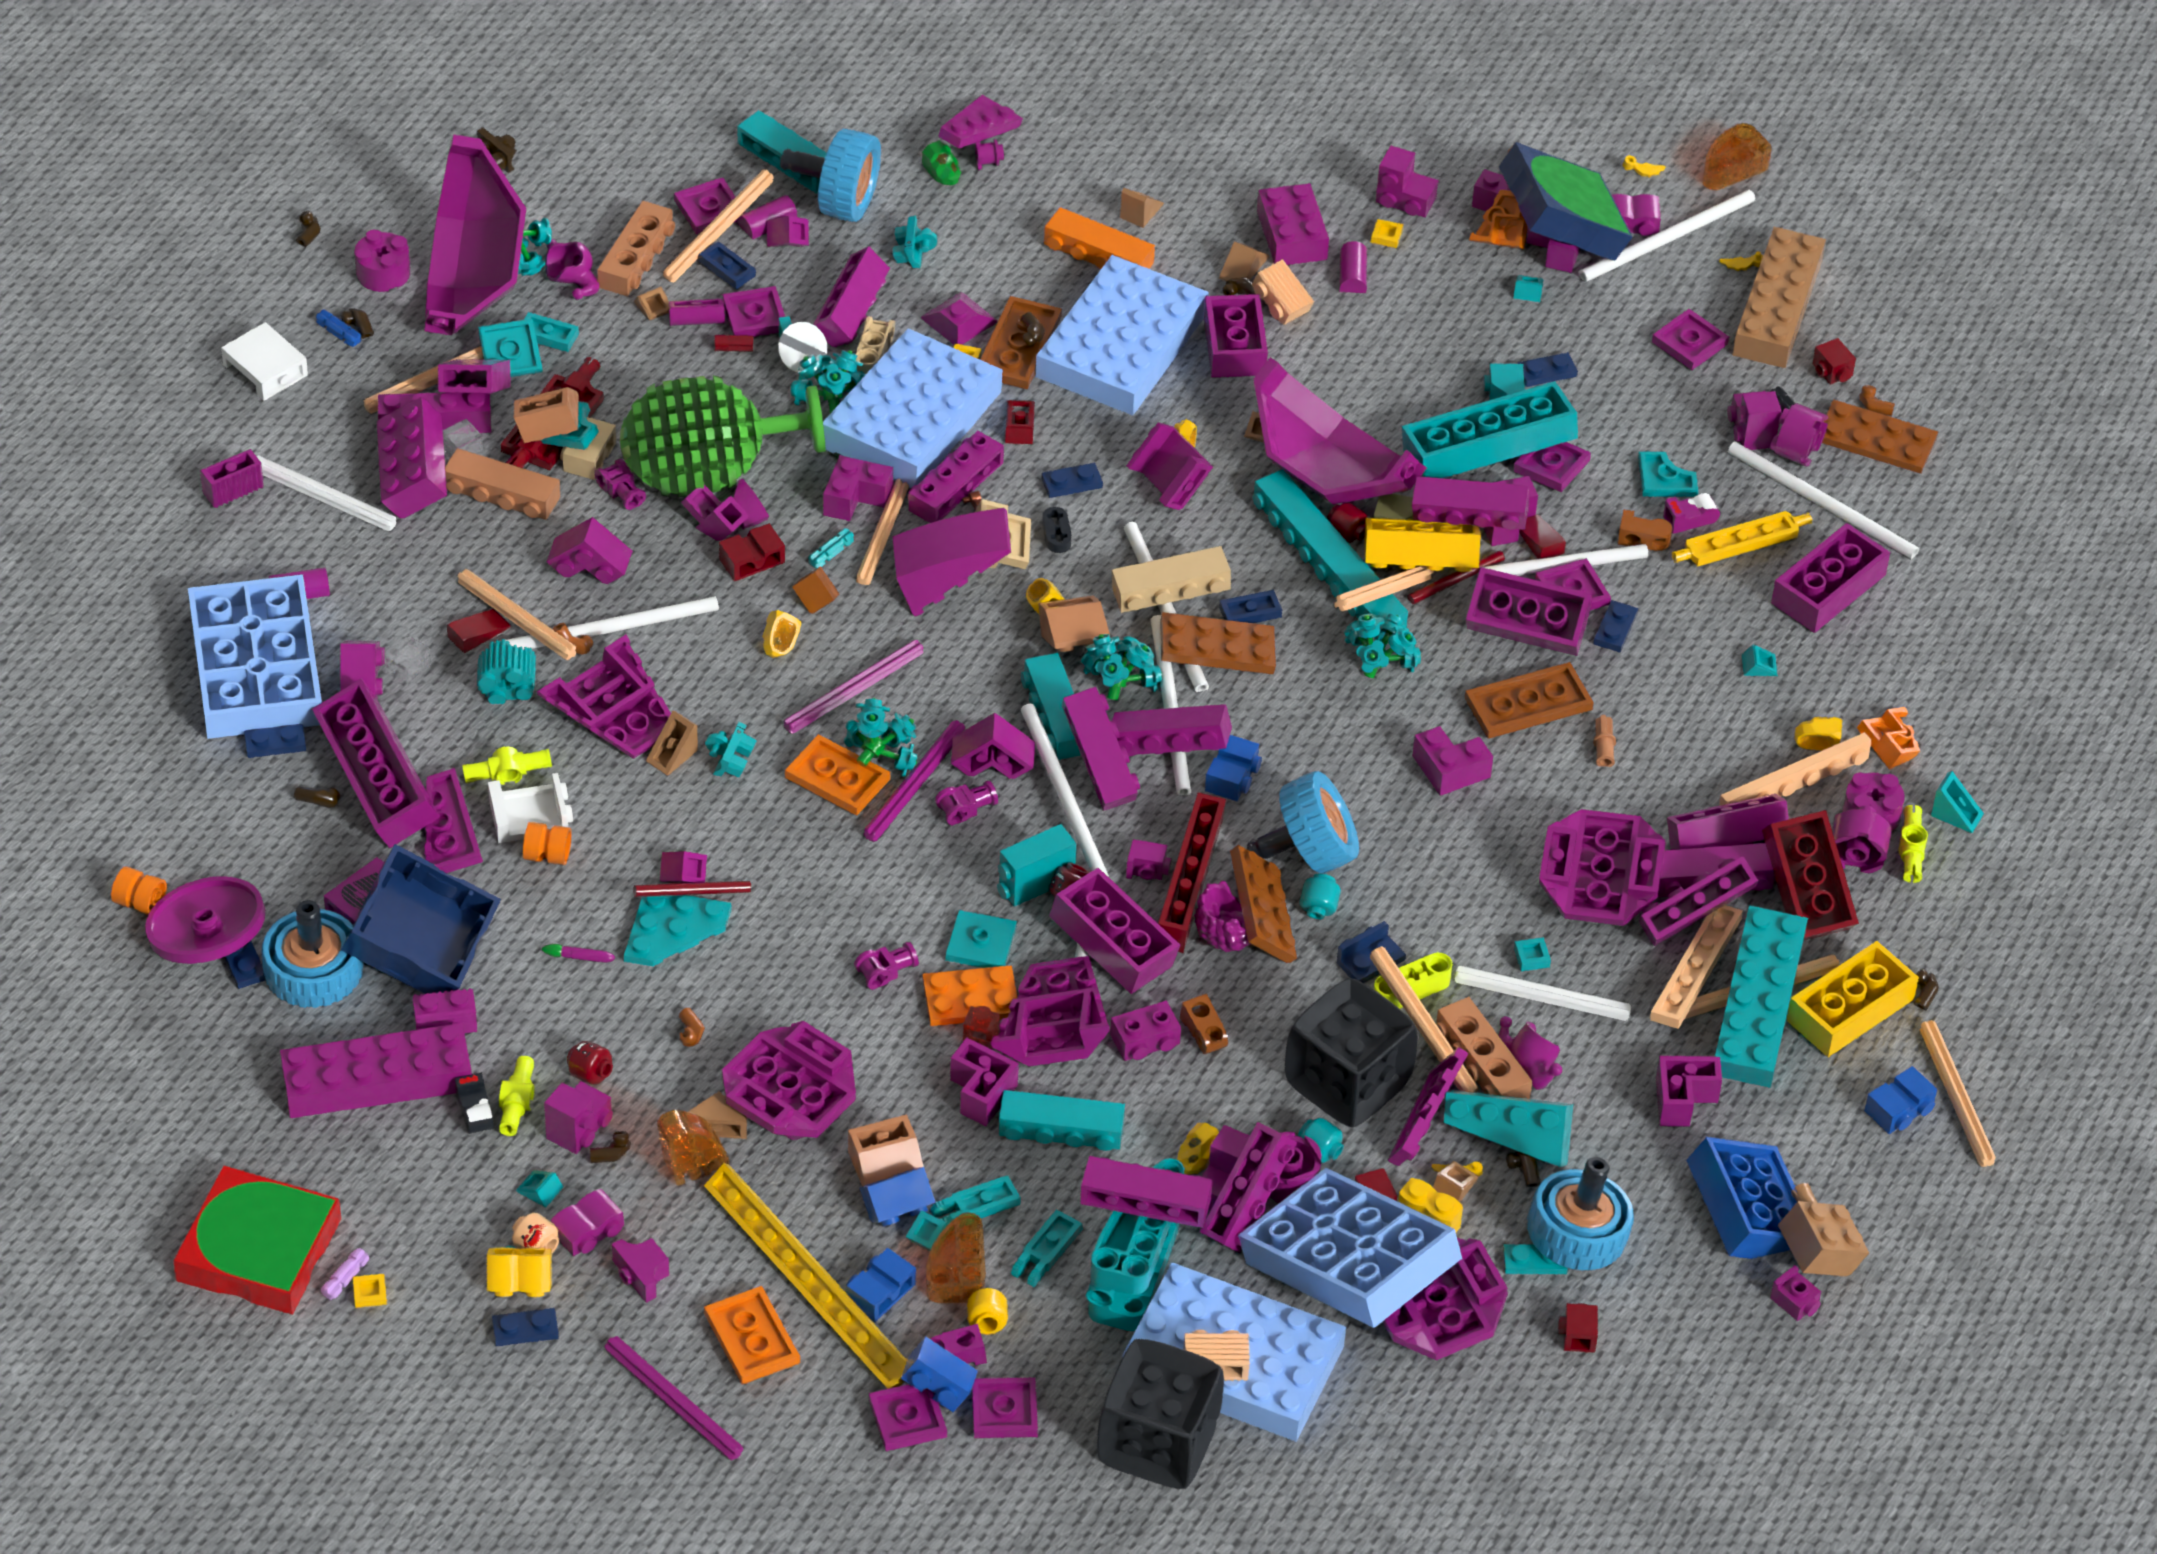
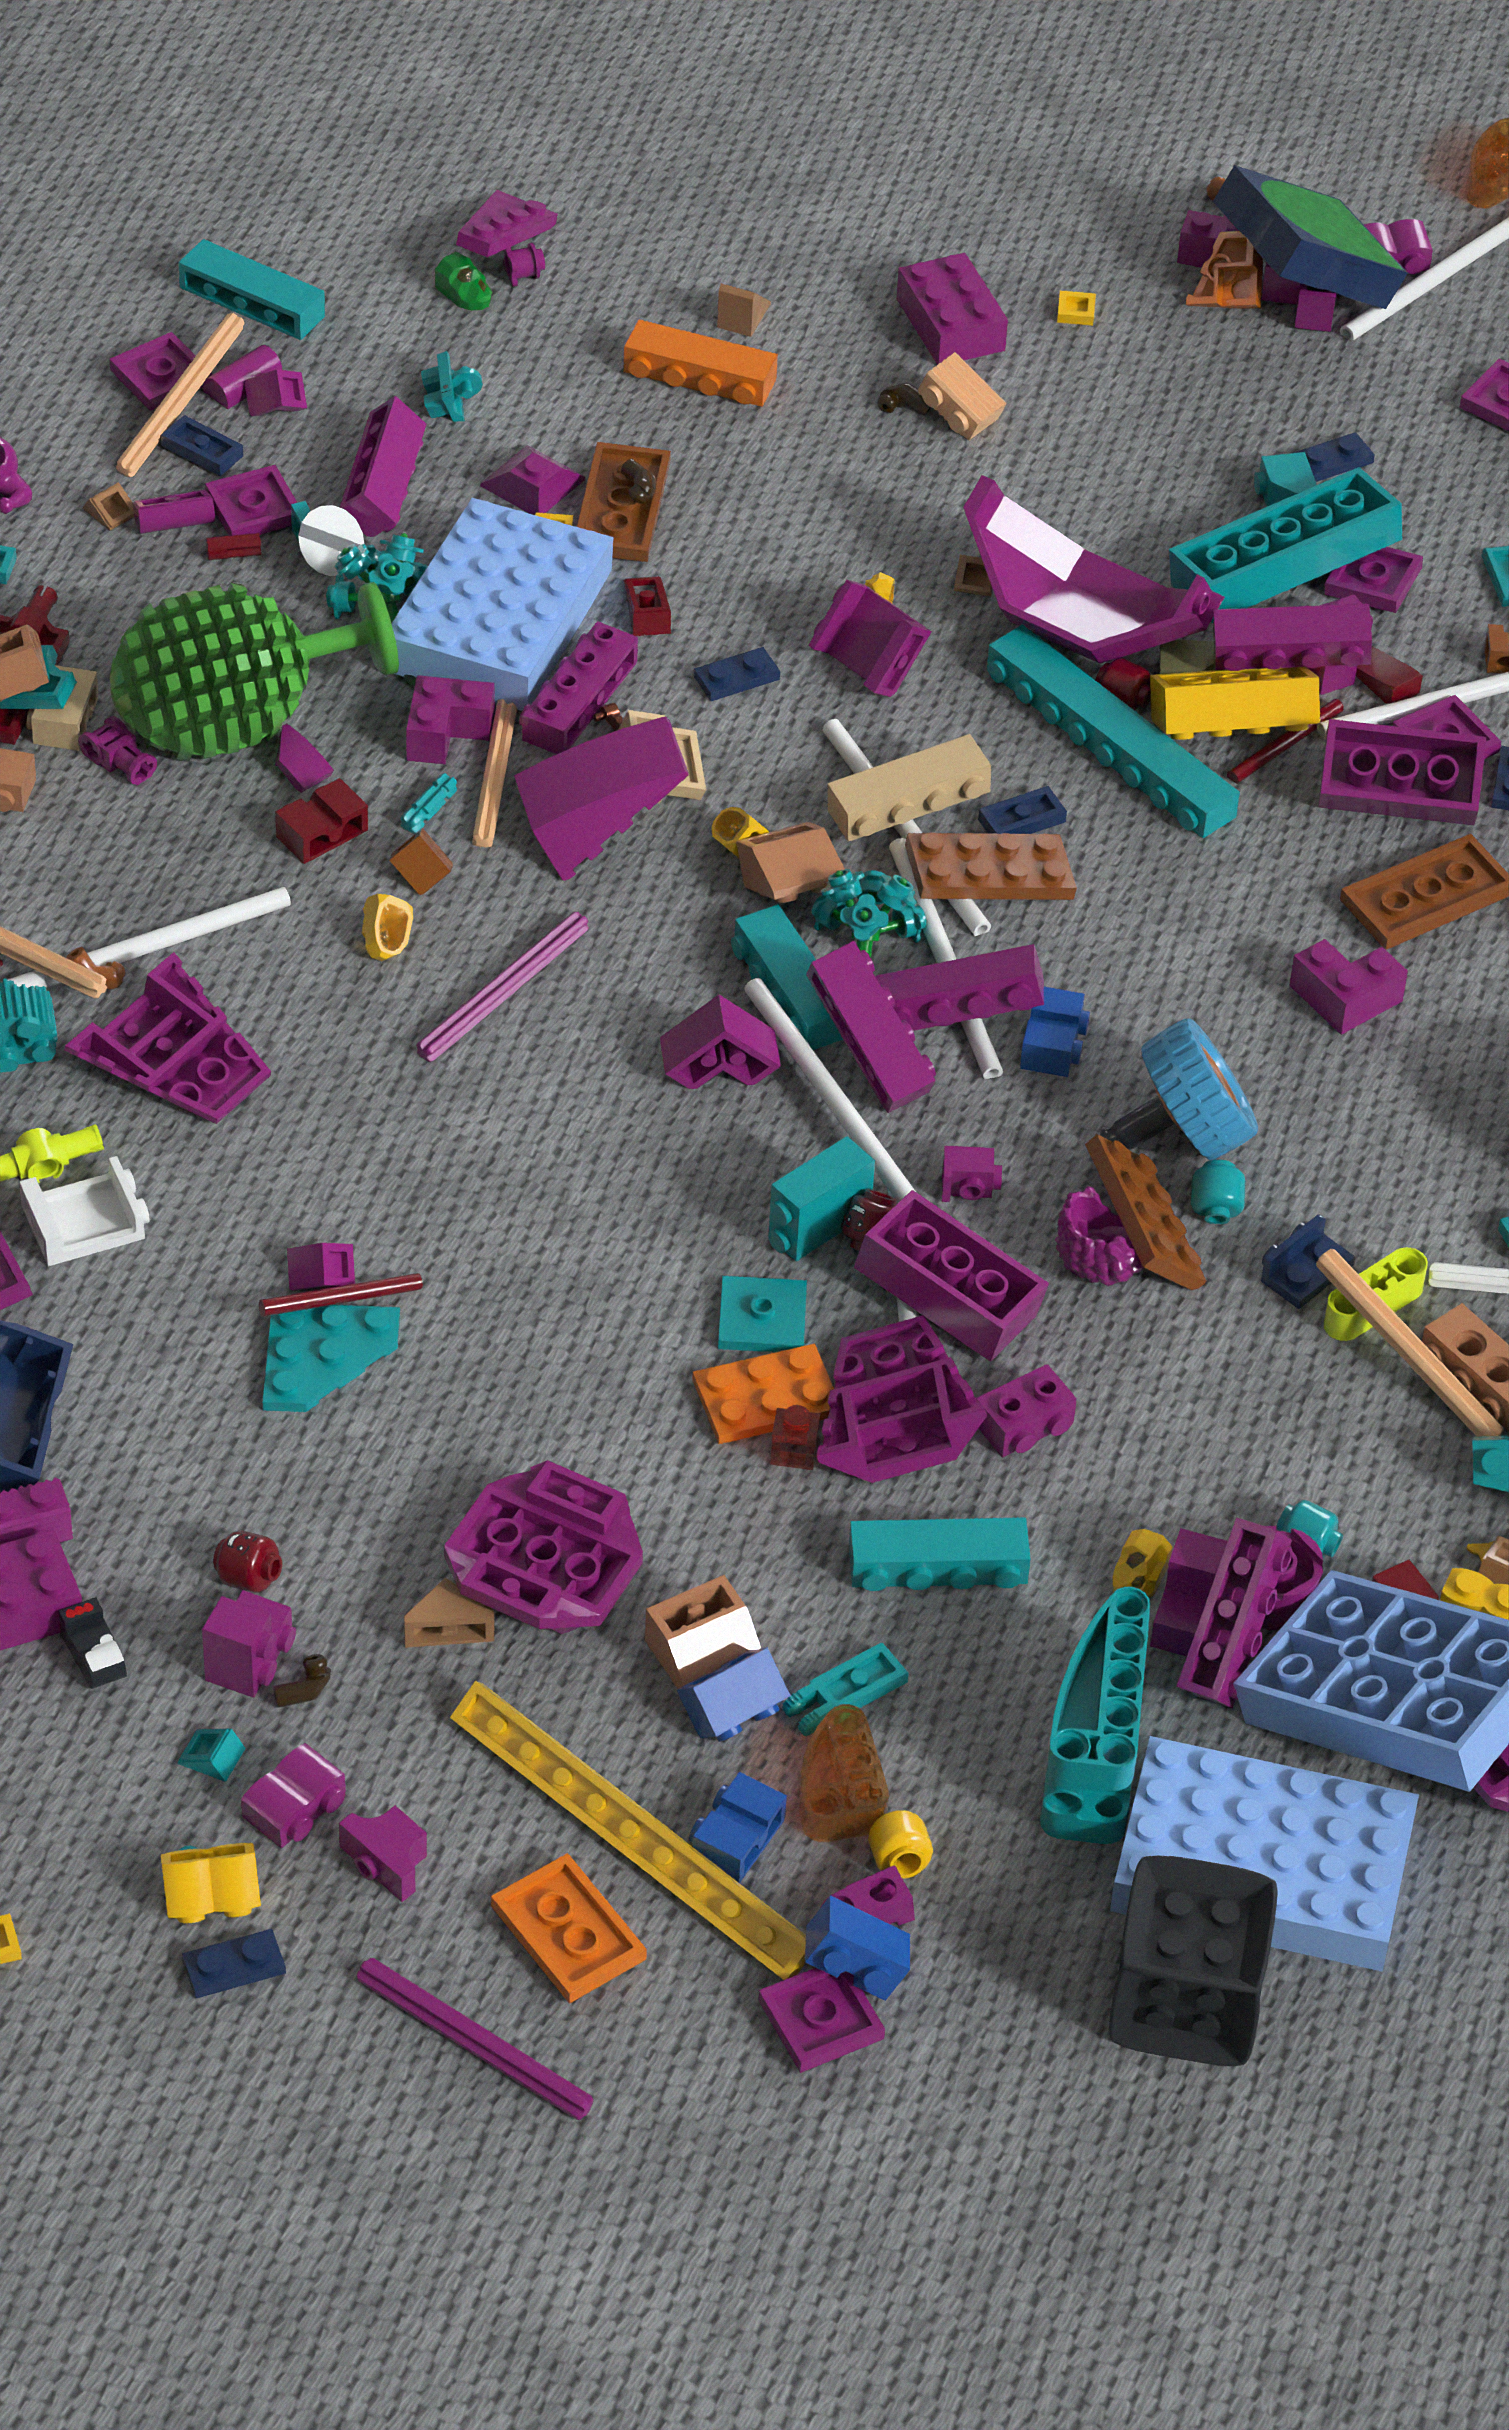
camera: 10 degrees left, 0 degrees up
(516, 1095) = (151, 1624): neon yellow pin -> none
(535, 1232) = (221, 1822): light nougat head -> none
(547, 843) = (120, 1257): orange wheel -> none
(558, 950) = (195, 1407): magenta piece -> none
(590, 548) = (97, 841): magenta brick -> none
(636, 248) = (73, 437): nougat brick -> none
(675, 744) = (271, 1095): medium nougat slope -> none
(689, 1144) = (420, 1661): clear orange beam -> none
(693, 1030) = (385, 1492): dark orange arm -> none
(715, 518) = (260, 780): magenta brick -> none
(720, 745) = (346, 1092): teal hips -> none
(836, 775) = (508, 1110): orange plate -> none
(845, 174) = (342, 305): dark azure wheel -> none
(871, 725) = (555, 1044): teal plant -> none
(874, 342) = (427, 523): tan piece -> none
(885, 964) = (634, 1367): magenta connector -> none
(912, 782) = (616, 1106): magenta axle -> none
(925, 1230) = (786, 1739): teal plate -> none
(965, 802) = (696, 1124): magenta connector -> none
(983, 1079) = (818, 1506): magenta brick -> none
(1004, 1407) = (959, 1983): magenta plate -> none
(1047, 1246) = (962, 1736): teal hinge -> none
(1051, 530) = (726, 743): black beam -> none
(1121, 335) = (759, 475): light blue brick -> none
(1146, 1191) = (1110, 1639): magenta brick -> none
(1192, 867) = (1035, 1172): dark red brick -> none
(1204, 1024) = (1104, 1390): dark orange leg -> none
(1226, 1349) = (1267, 1850): light nougat brick -> none
(1235, 335) = (913, 459): magenta brick -> none
(1242, 262) = (896, 364): medium nougat slope -> none
(1351, 1052) = (1326, 1402): black piece -> none
(1353, 268) = (1043, 356): magenta brick -> none
(1373, 652) = (1214, 855): teal plant -> none
(1383, 588) = (1202, 763): light nougat axle -> none
(1403, 188) = (1083, 246): magenta brick -> none
(1425, 1107) = (1442, 1462): magenta wing -> none
(1528, 288) = (1280, 357): teal slope -> none
(1644, 169) = (1389, 192): yellow piece -> none

